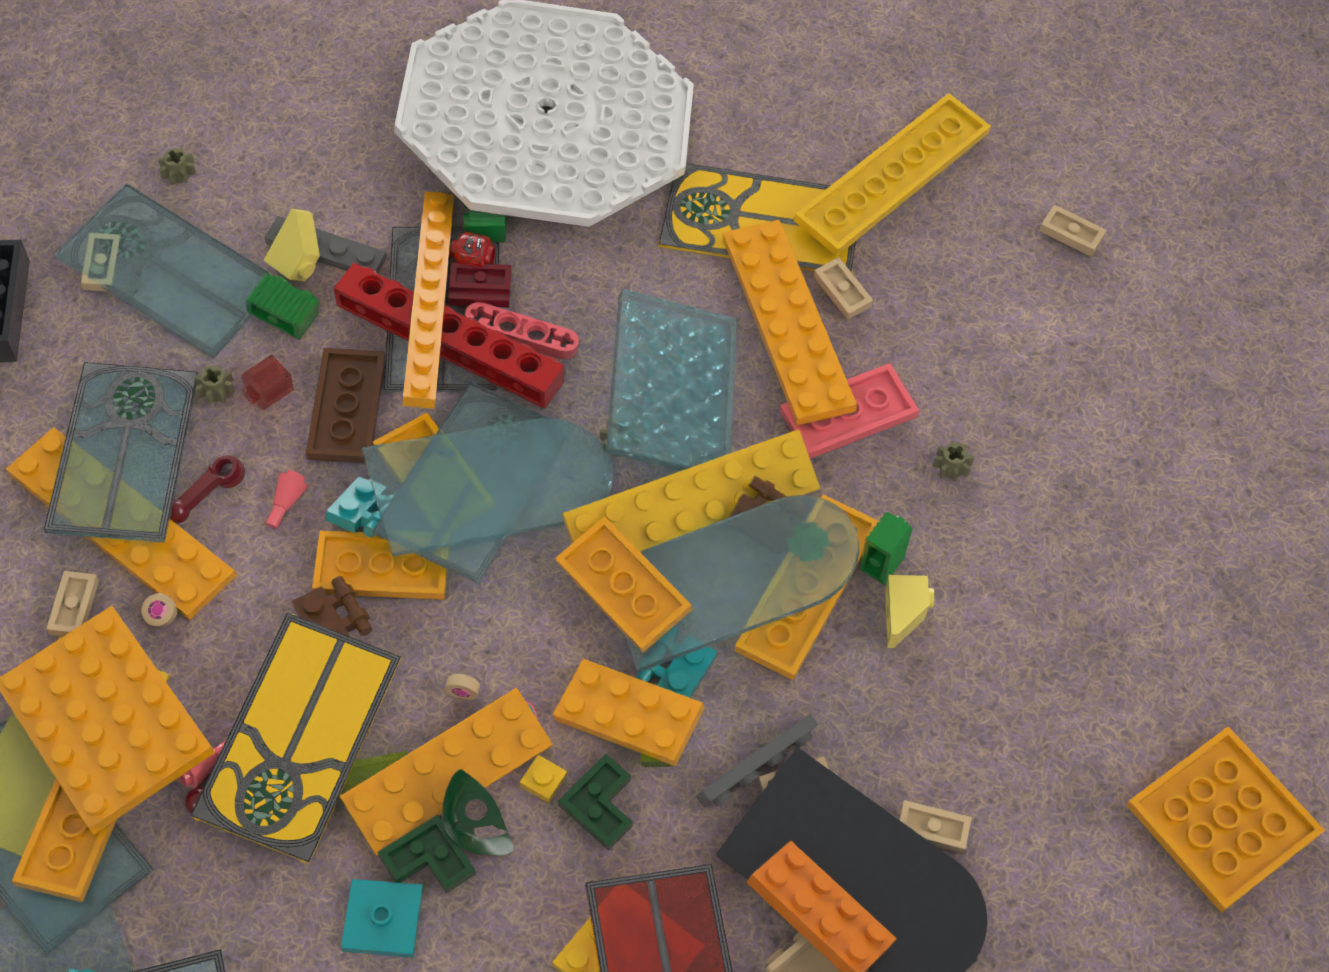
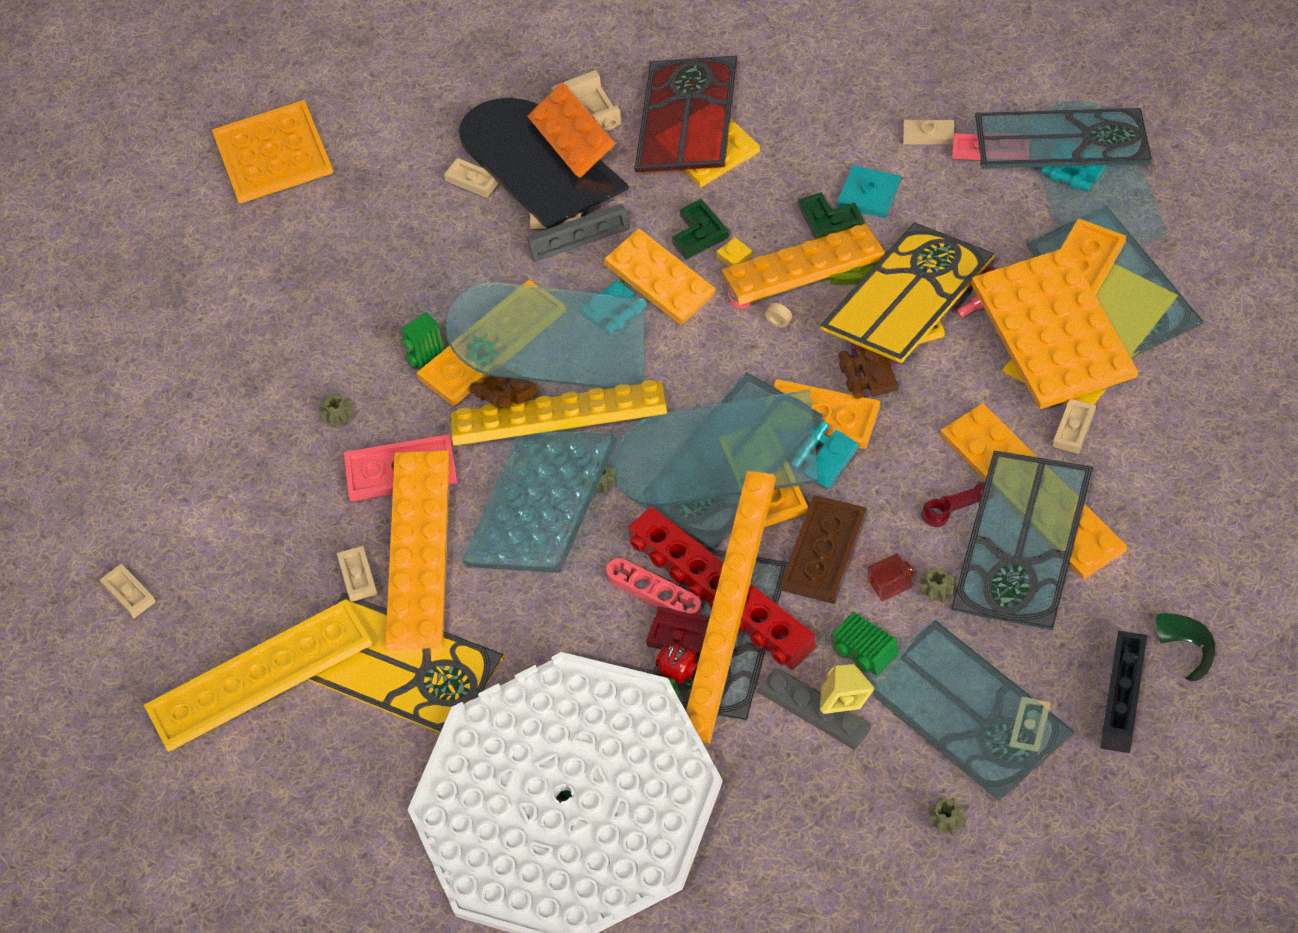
camera: 155 degrees left, 5 degrees down
(159, 610) = (1005, 411): tile -> none
(288, 491) = (886, 484): coral cone -> none
(459, 792) = (798, 223): dark green piece -> none
(624, 584) = (635, 344): light orange plate -> none
(906, 605) = (432, 301): light yellow slope -> none

